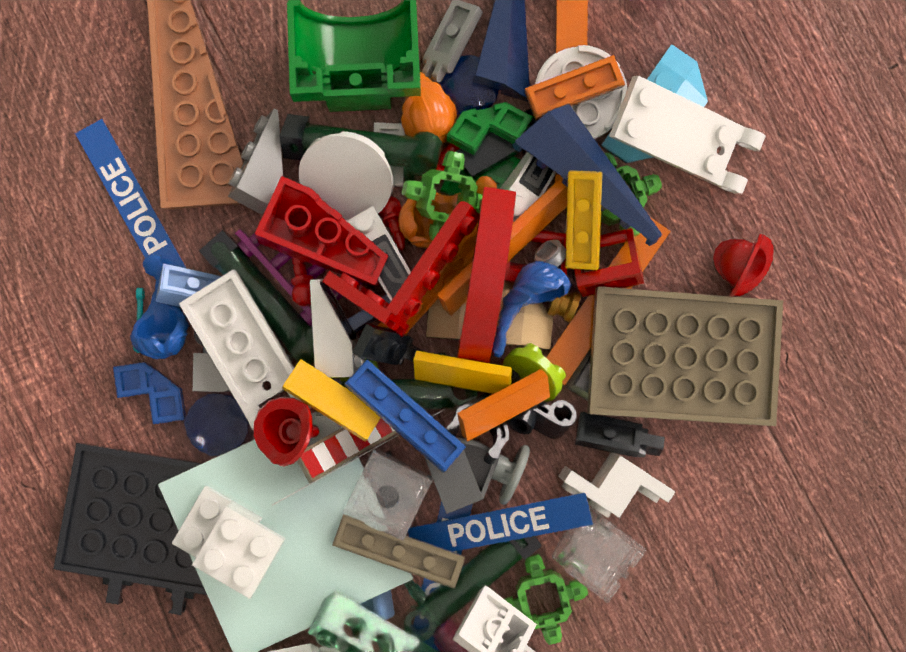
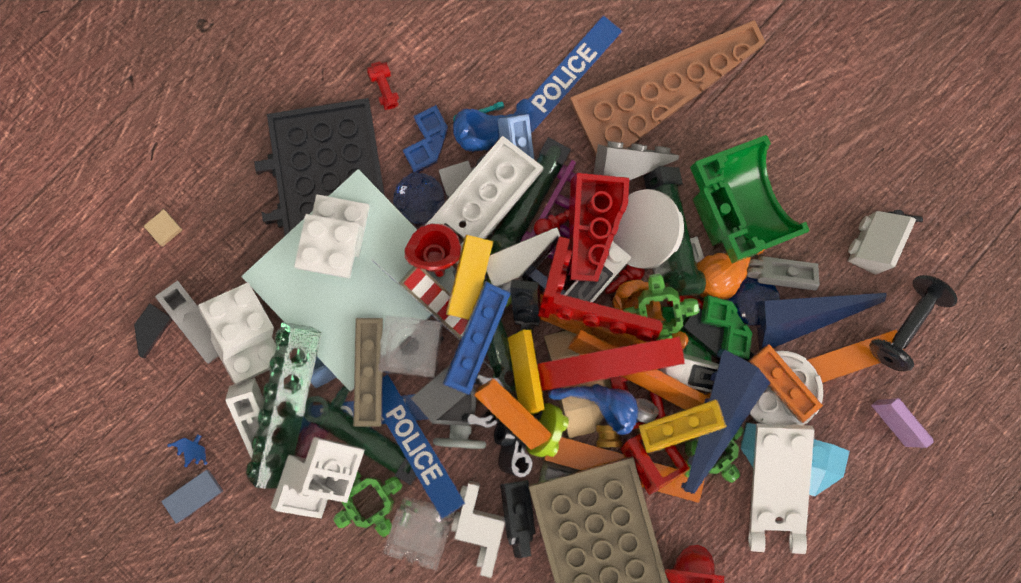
camera: 70 degrees right, 5 degrees down
(50, 420) = (379, 73): none -> red bar

